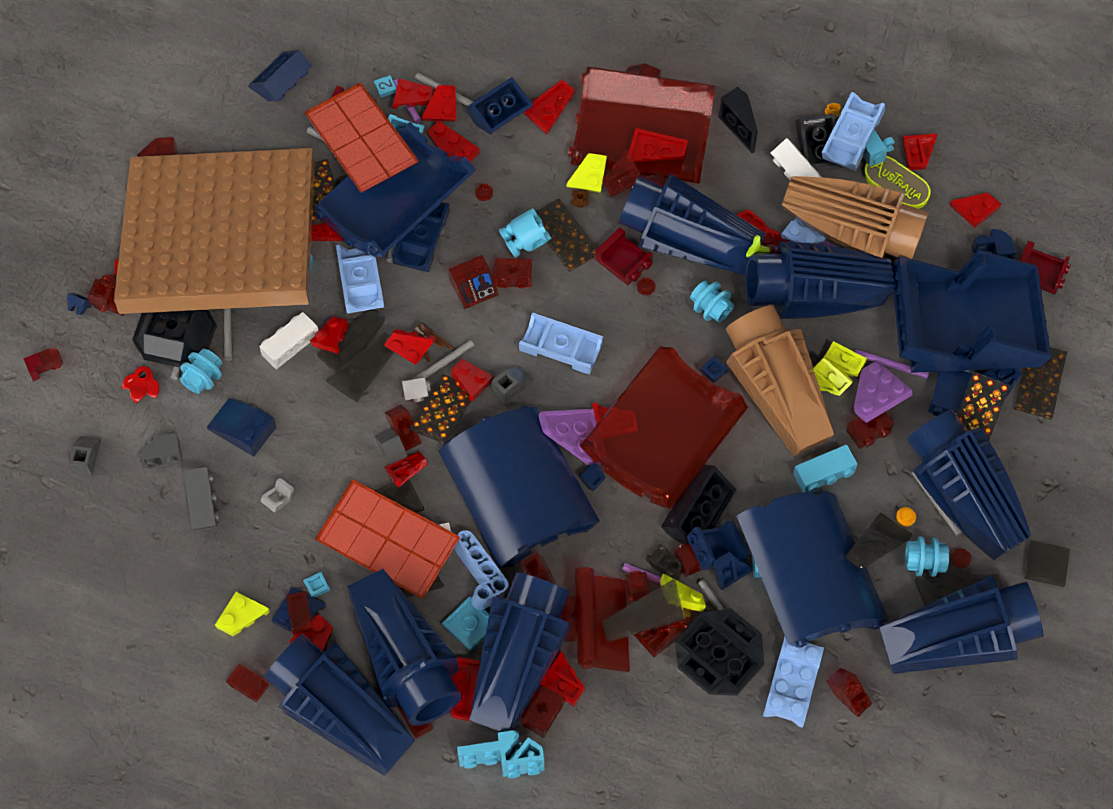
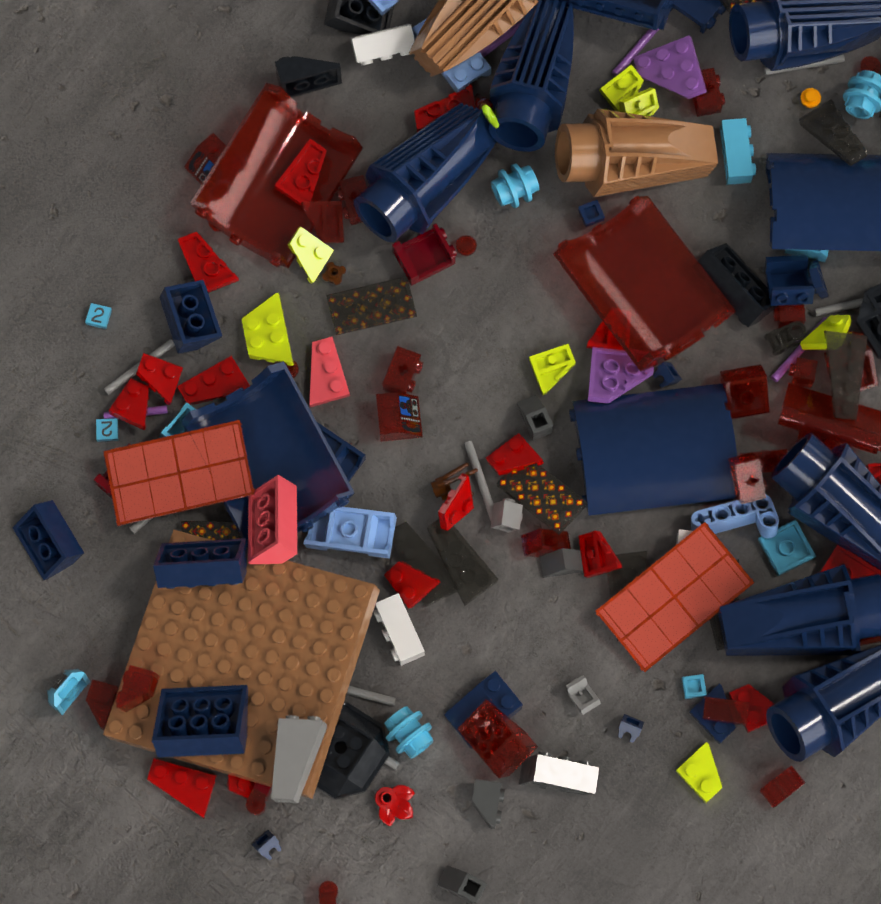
camera: 70 degrees left, 10 degrees up
(102, 296) = (274, 813): clear red brick -> none
(109, 233) = (184, 784): none -> red wing
(139, 276) = (294, 755): none -> light grey slope
(153, 209) = (201, 721): none -> dark blue slope
(159, 123) = (67, 689): none -> medium azure slope
(170, 160) = (137, 688): none -> clear red slope
(214, 439) = (497, 739): none -> clear red slope
(262, 542) = (631, 726): none -> dark blue tile
(285, 168) = (201, 563): none -> dark blue slope
(338, 209) = (272, 522): none -> coral slope
(477, 50) = (98, 316): none -> medium azure tile
(486, 223) = (327, 375): none -> coral wing
(509, 167) = (267, 332): none -> neon yellow wing
(513, 559) = (748, 478): none -> clear red brick
(528, 232) = (363, 339): medium azure piece -> none
(561, 343) = (505, 352): light blue piece -> none
(563, 383) = (552, 366): none -> neon yellow wing
(600, 543) = (746, 391): none -> clear red slope

